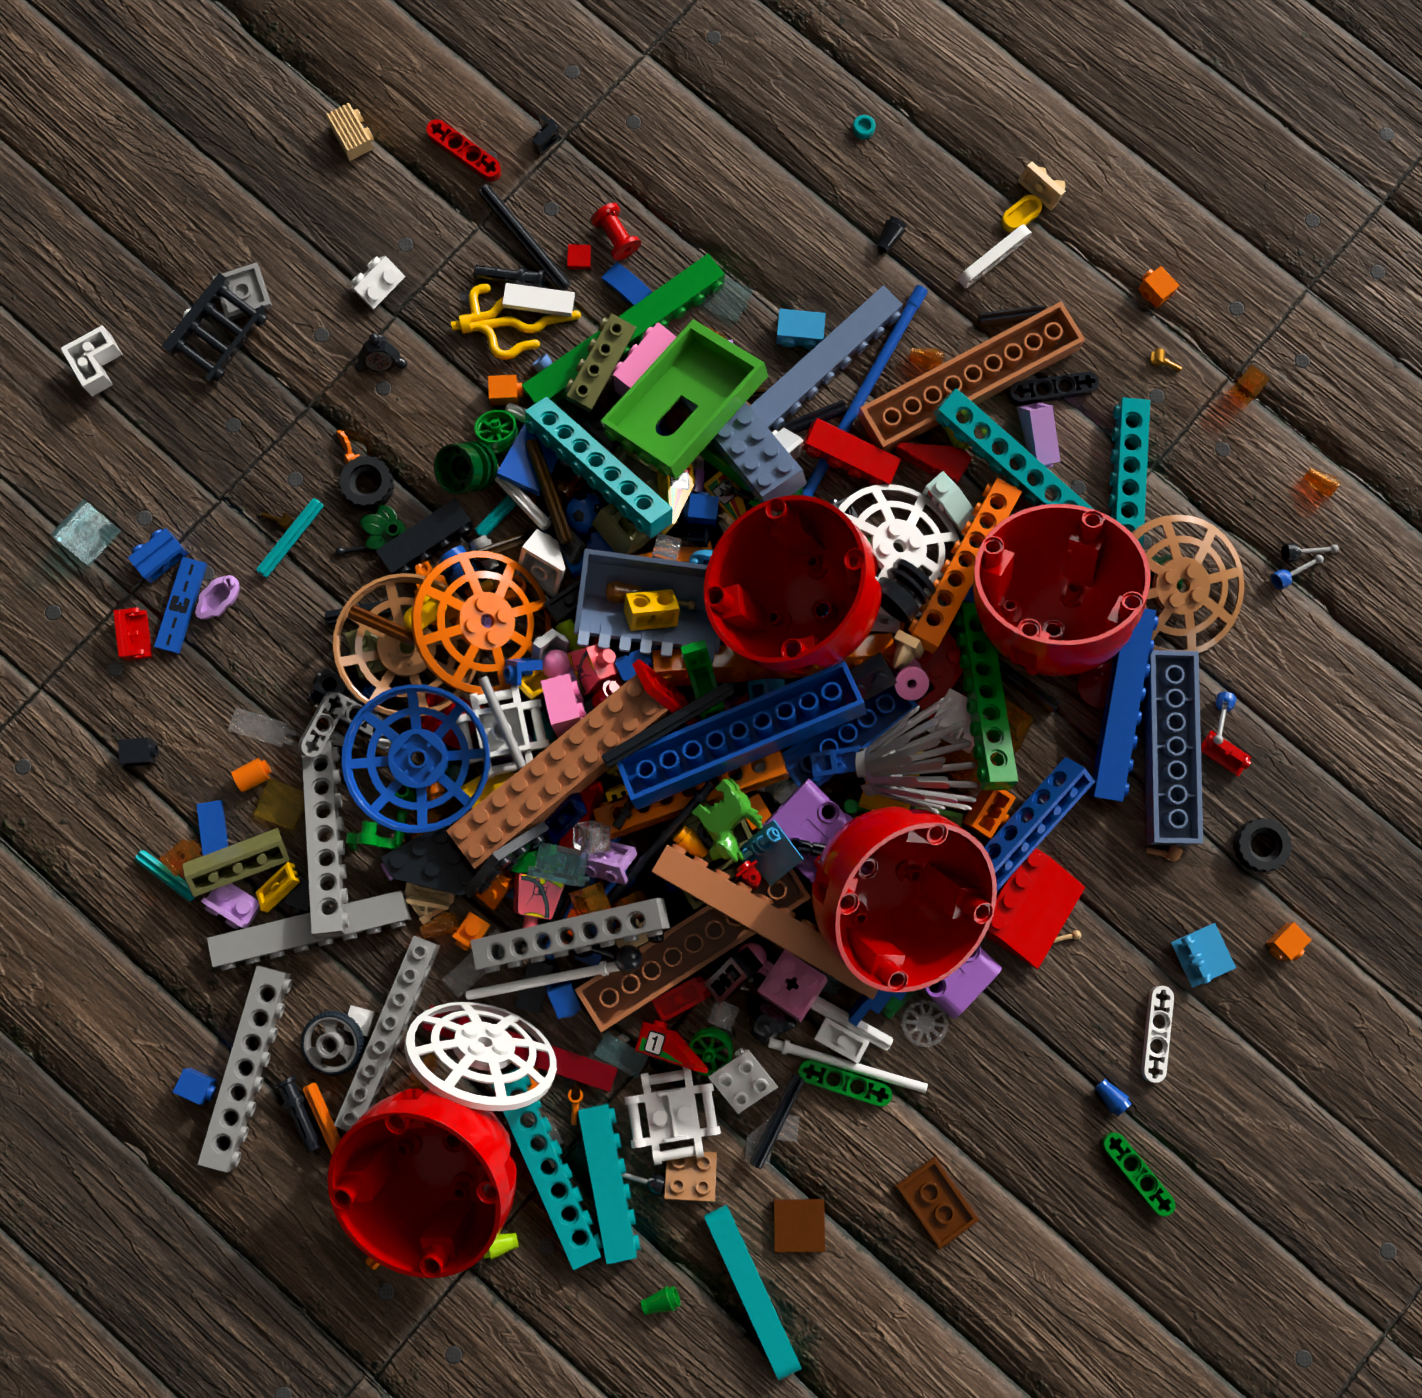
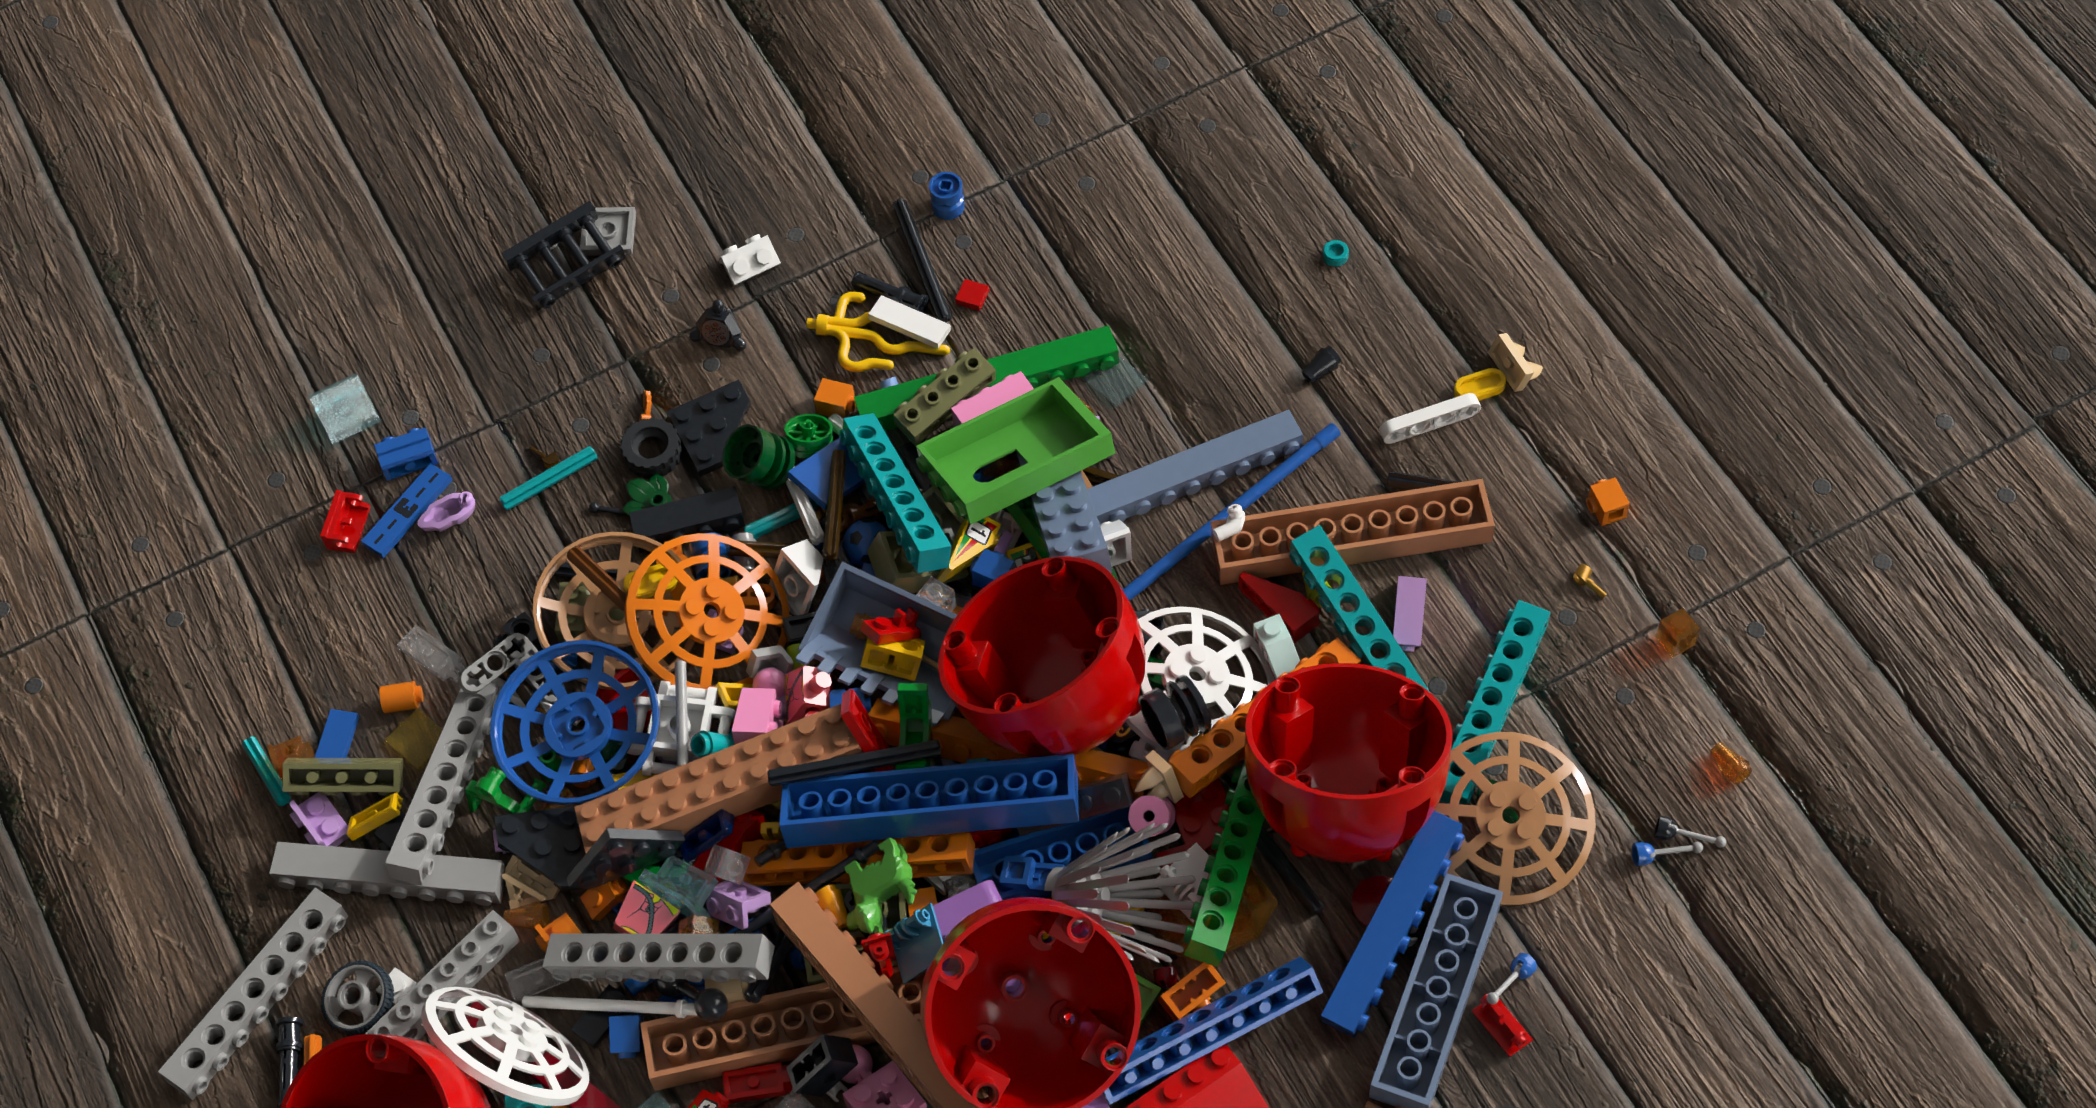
camera: 30 degrees right, 20 degrees down
(89, 355) = (426, 245): white brick -> none
(137, 752) = (295, 637): black brick -> none
(195, 1086) = (194, 993): blue brick -> none
(349, 131) = (784, 113): tan brick -> none
(407, 445) = (708, 423): none -> black plate
(465, 148) = (891, 163): red beam -> none
(517, 667) = (732, 671): blue bracket -> none
(523, 171) = (946, 195): none -> blue wheel
(536, 741) = (708, 742): none -> teal cone
(547, 137) = (985, 172): black bracket -> none
(608, 219) = (1023, 294): red piece -> none
(626, 284) = (1009, 332): blue slope -> none
(645, 590) = (888, 630): none -> red plate
(800, 328) = (1180, 427): dark azure brick -> none
(825, 414) = (1164, 524): black axle -> none
(850, 453) = (1183, 567): red brick -> none
(881, 405) = (1233, 524): none -> white arm
(927, 357) = (1310, 496): clear orange cone -> none
(1052, 385) = (1447, 567): black beam -> none

